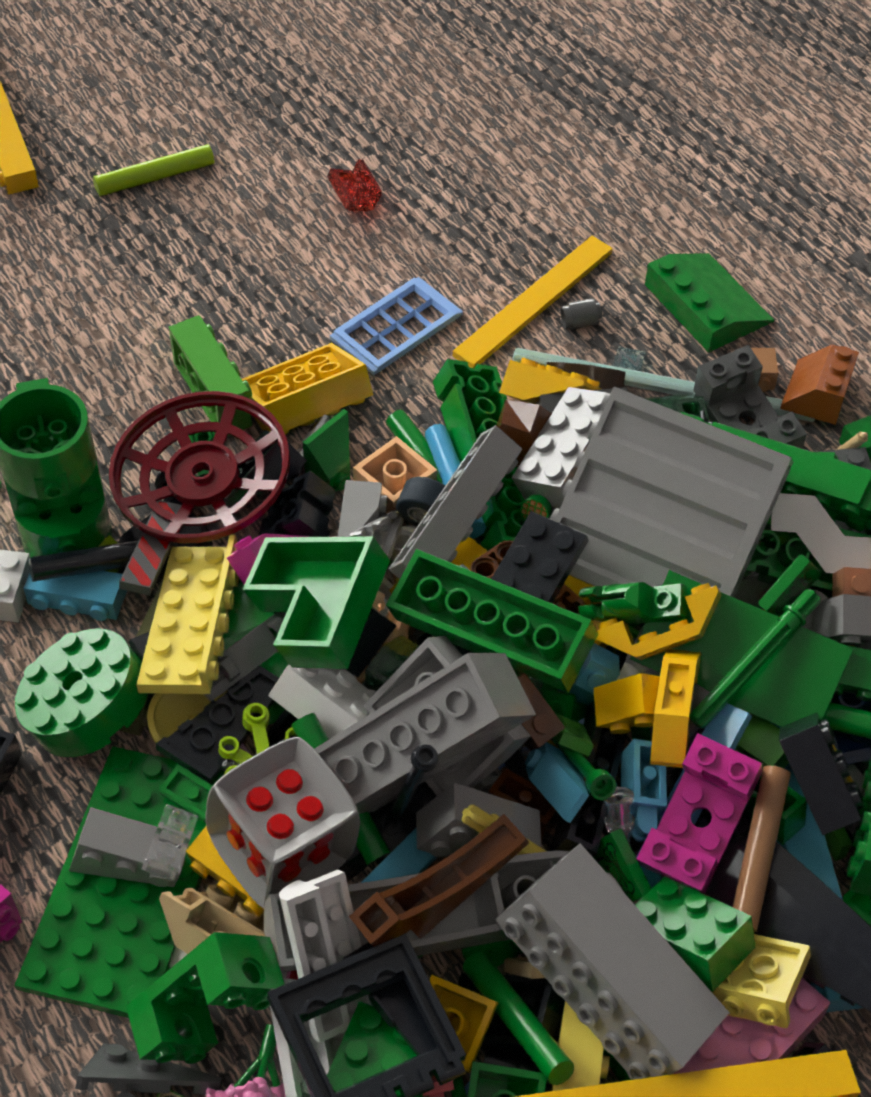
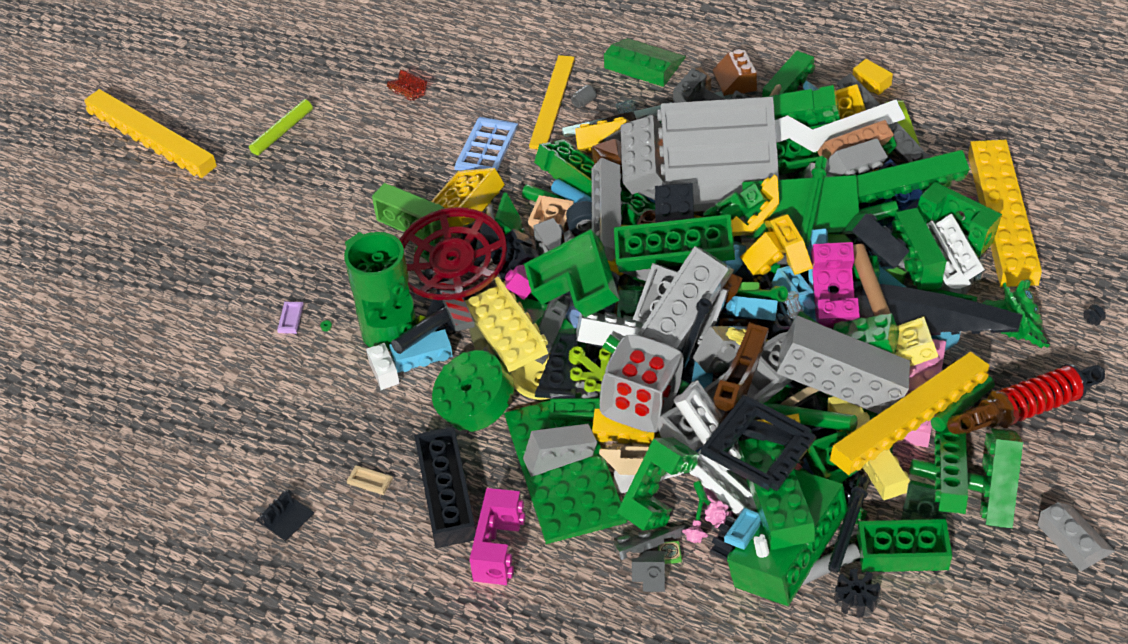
camera: 25 degrees left, 5 degrees down
(169, 842) = (582, 428): clear slope -> none
(537, 504) = (643, 194): green tile -> none
(790, 585) = (805, 160): green tile -> none

